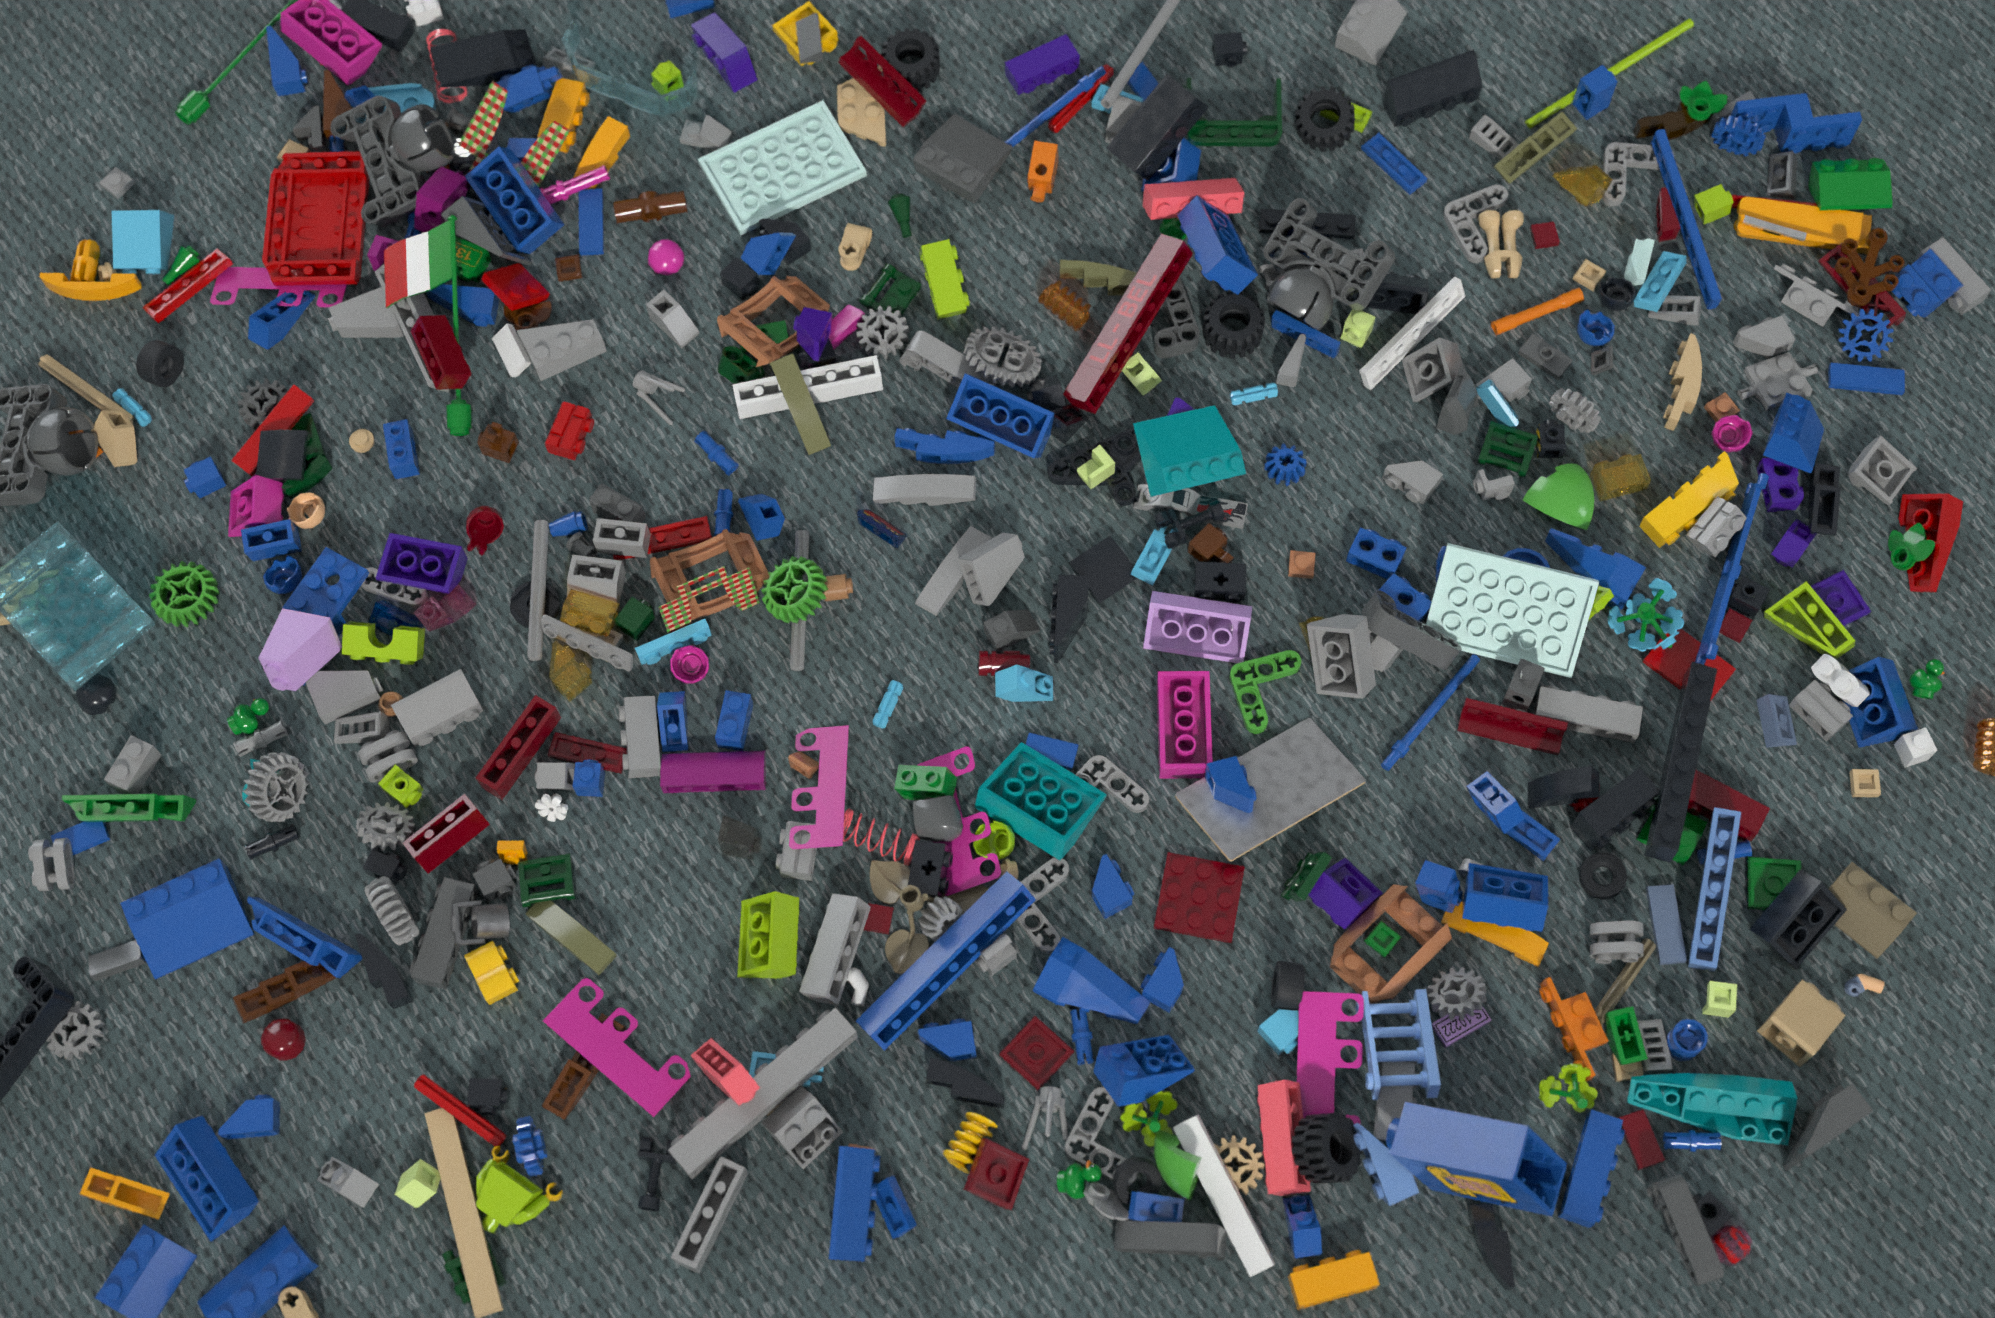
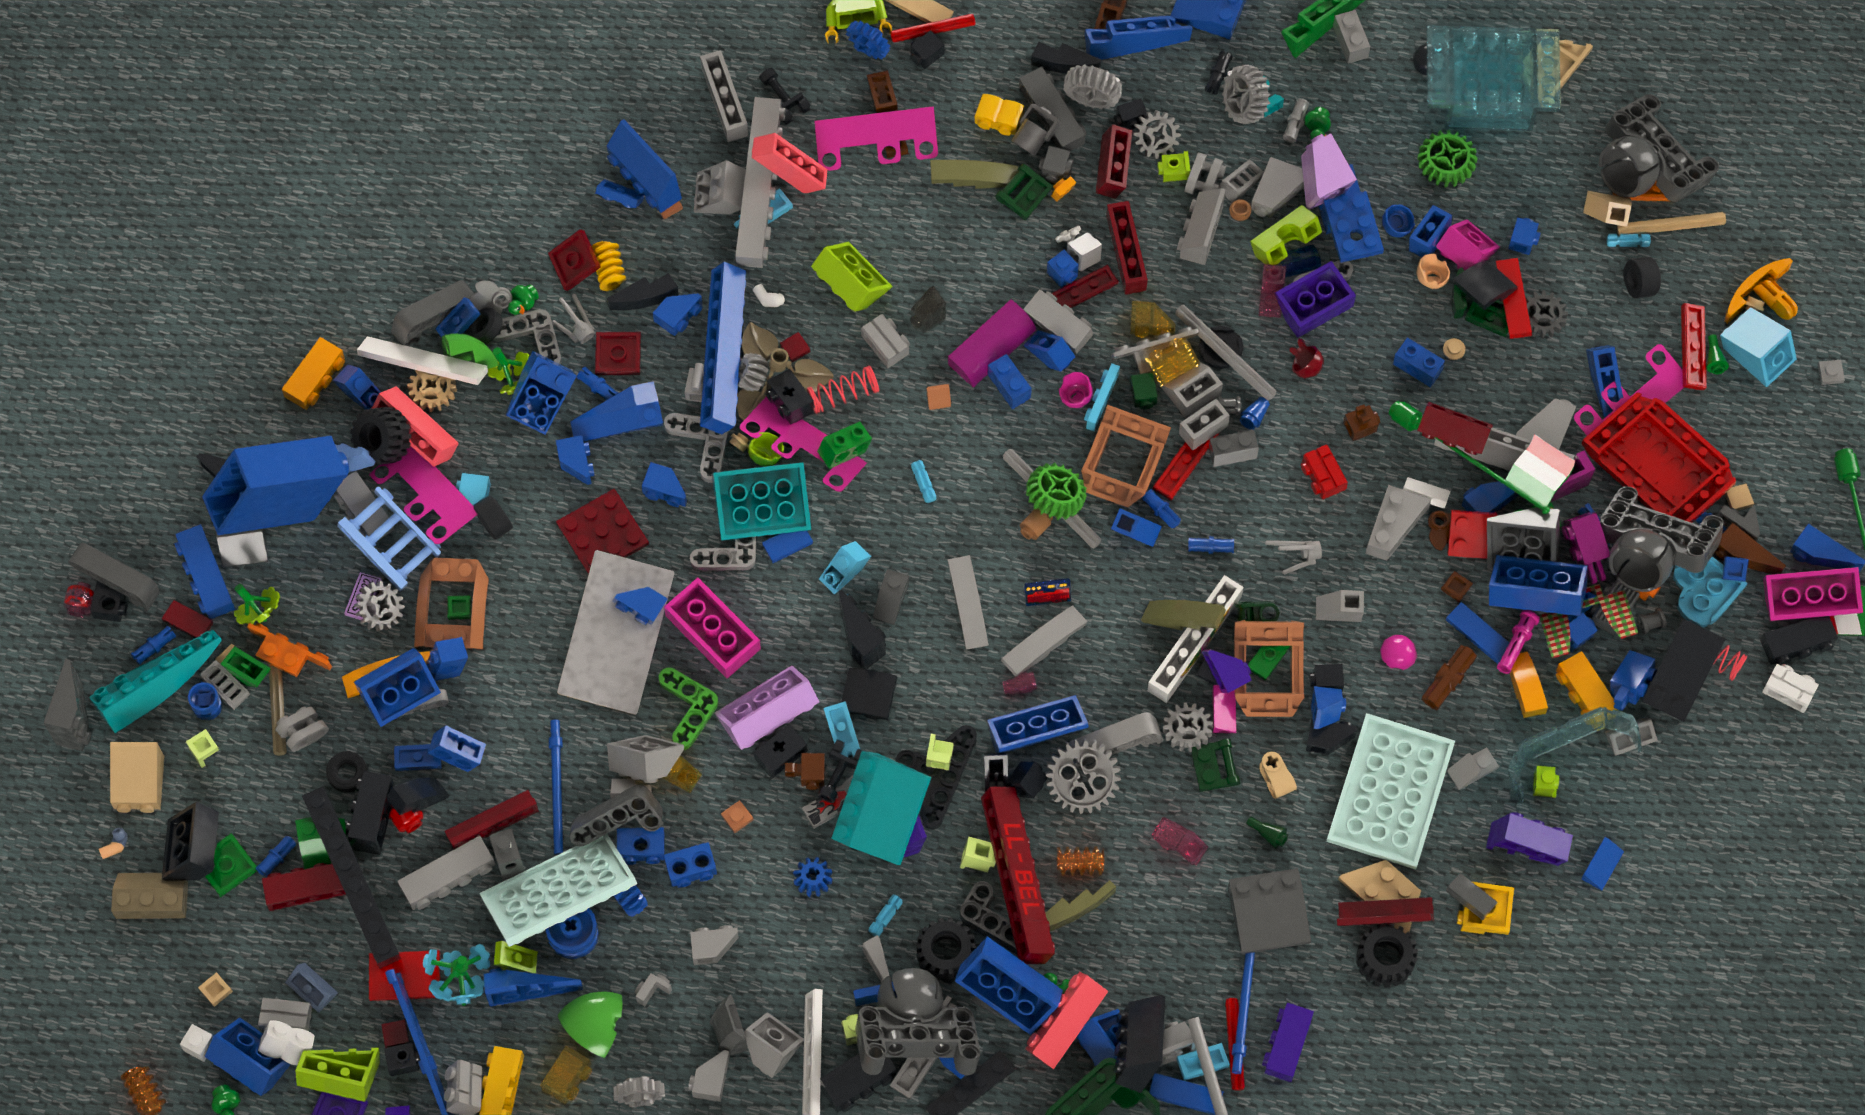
camera: 135 degrees right, 0 degrees up
(738, 586) = (1103, 410): piece -> none
(830, 794) = (900, 387): dark pink piece -> none
(835, 949) = (801, 301): light grey brick -> none
(937, 819) = (811, 426): dark grey piece -> none
(944, 279) = (1186, 801): lime wedge -> none
(954, 449) = (1066, 674): blue slope -> none
(973, 468) = (1020, 684): none -> clear pink cone
(976, 260) = (1177, 838): none -> clear pink slope
(991, 566) = (943, 624): light grey slope -> none
(995, 662) = (871, 571): dark red axle -> none
(1042, 170) = (1199, 949): orange torso -> none
(1306, 876) = (542, 596): dark green plate -> none
(1344, 893) = (508, 612): dark purple slope -> none
(1497, 404) = (698, 1050): medium azure slope -> none
(1511, 442) = (668, 1037): dark green plate -> none
(1551, 446) = (636, 1053): black brick -> none
(1666, 924) = (278, 775): sand blue tile -> none
(1714, 889) = (261, 811): medium blue brick -> none

